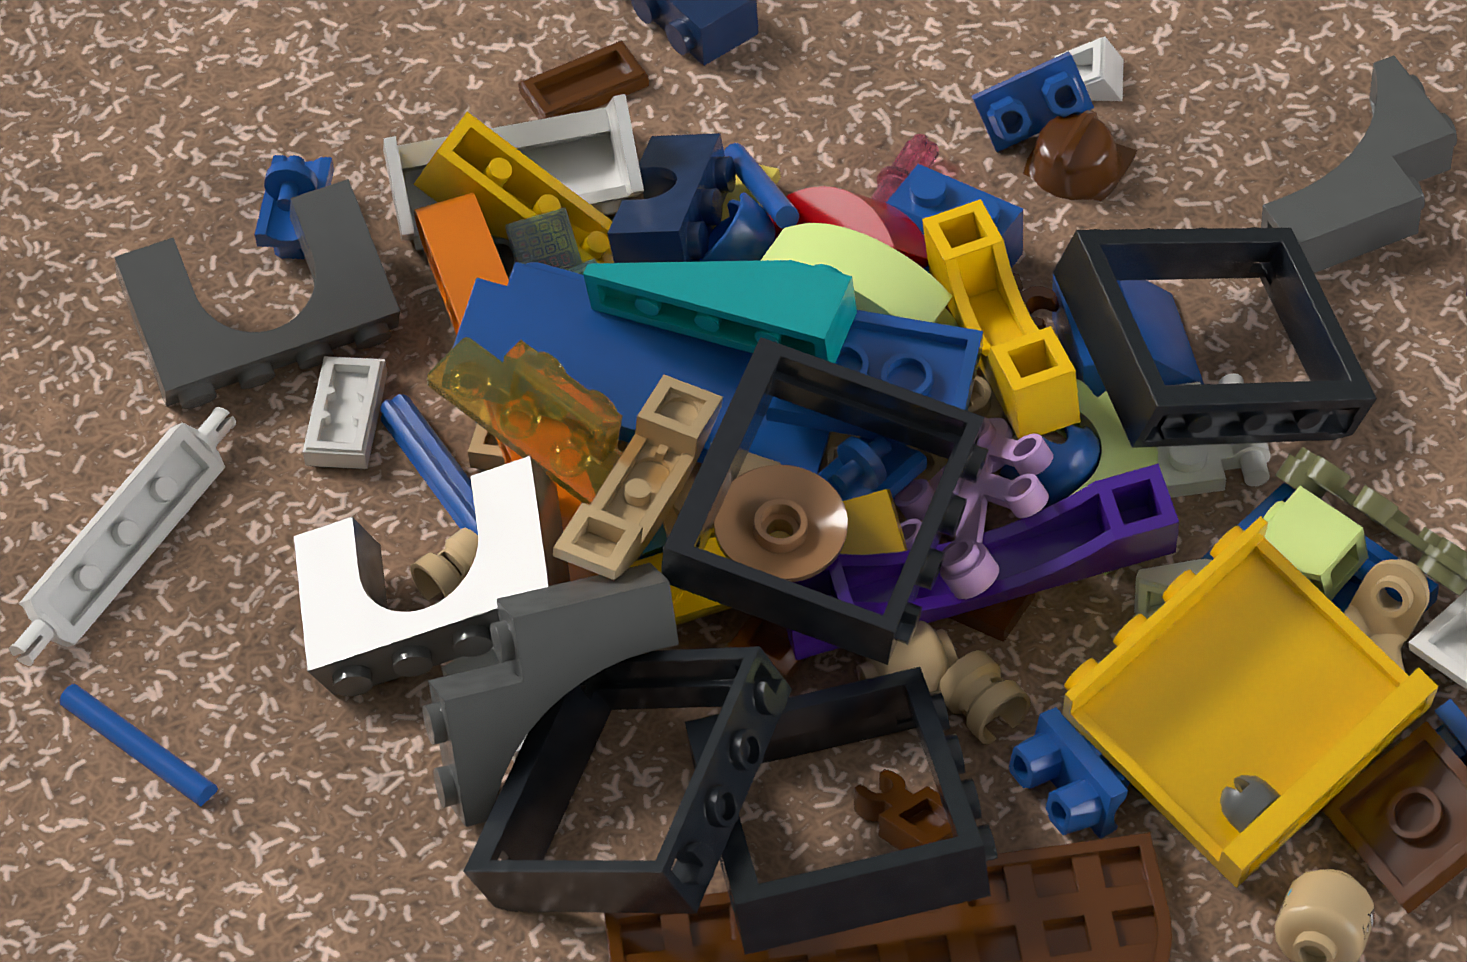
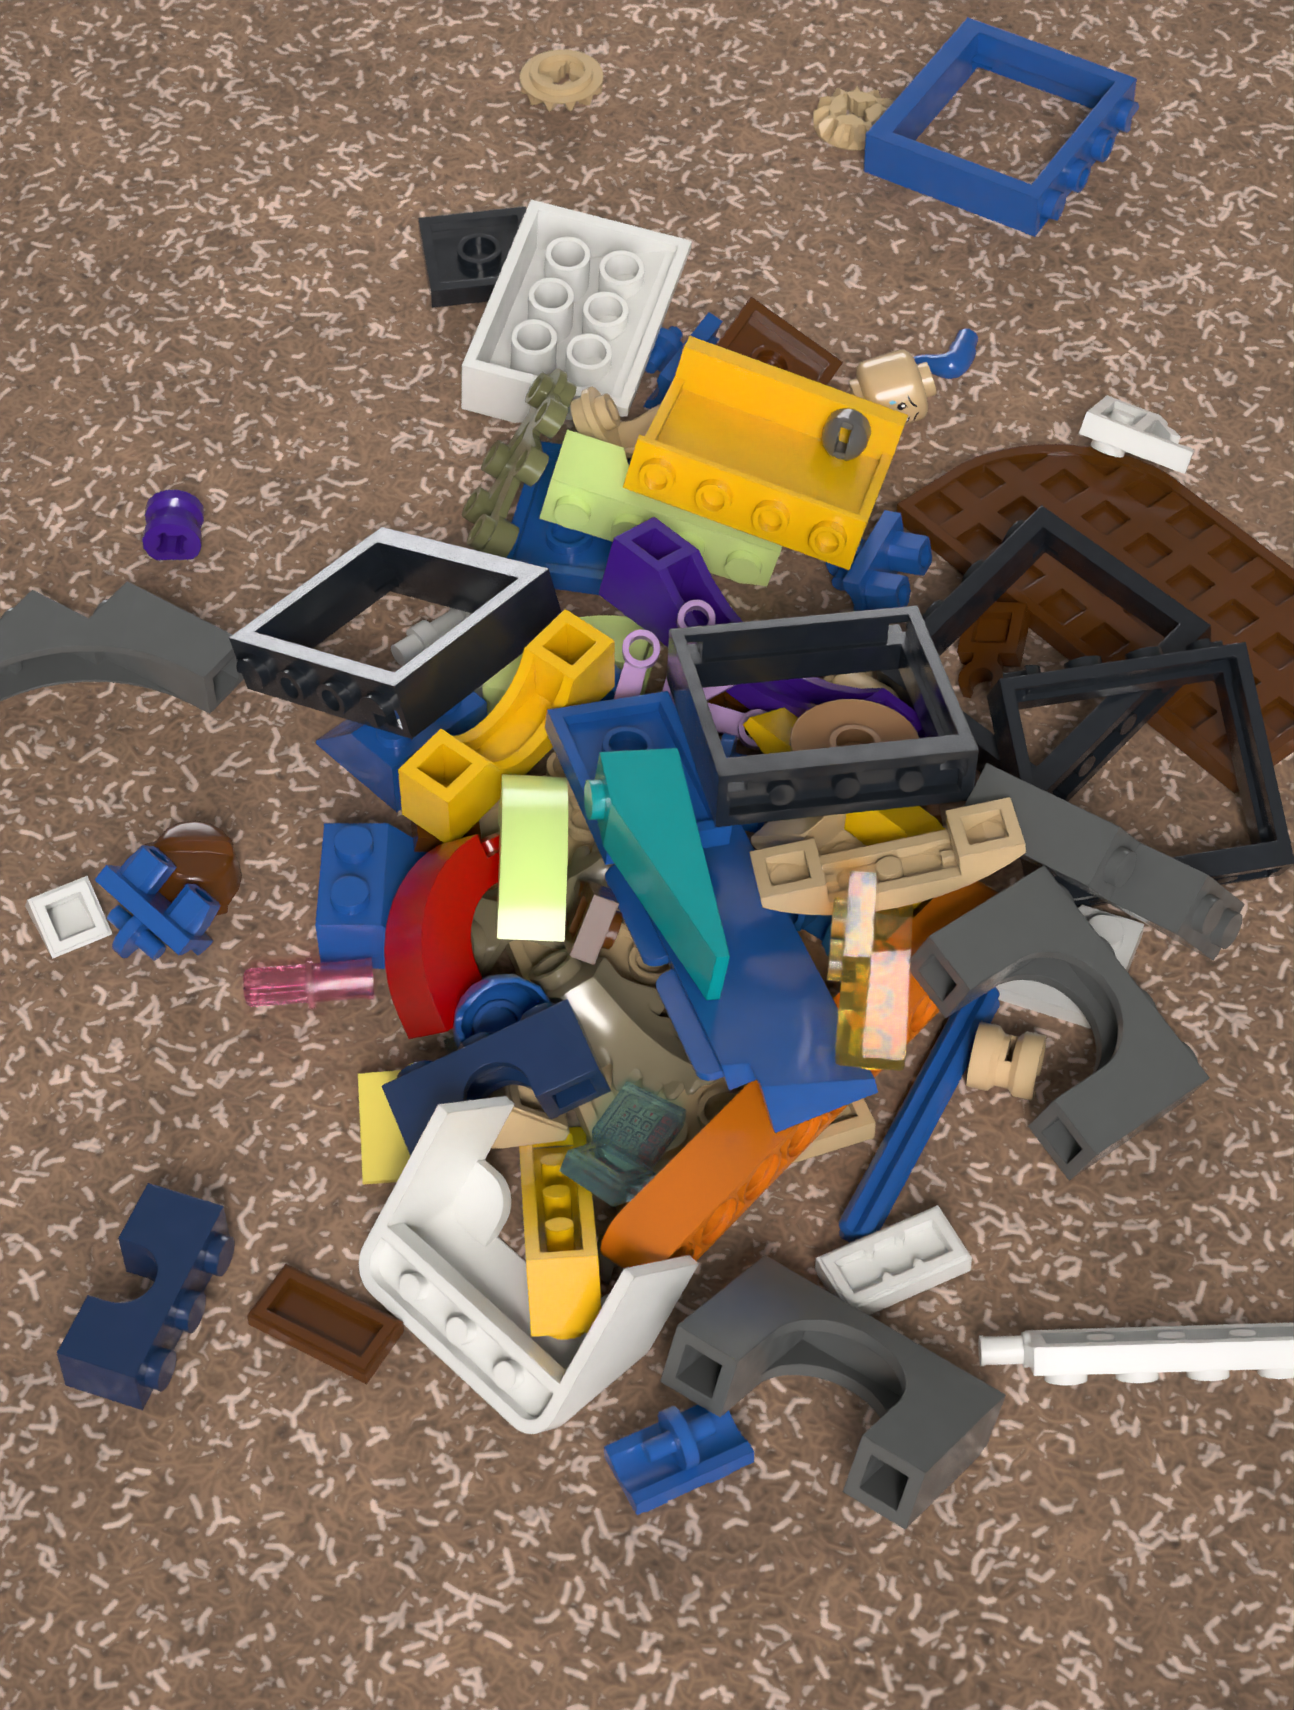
camera: 125 degrees left, 0 degrees up
(762, 187) = (422, 1028): blue bar -> none

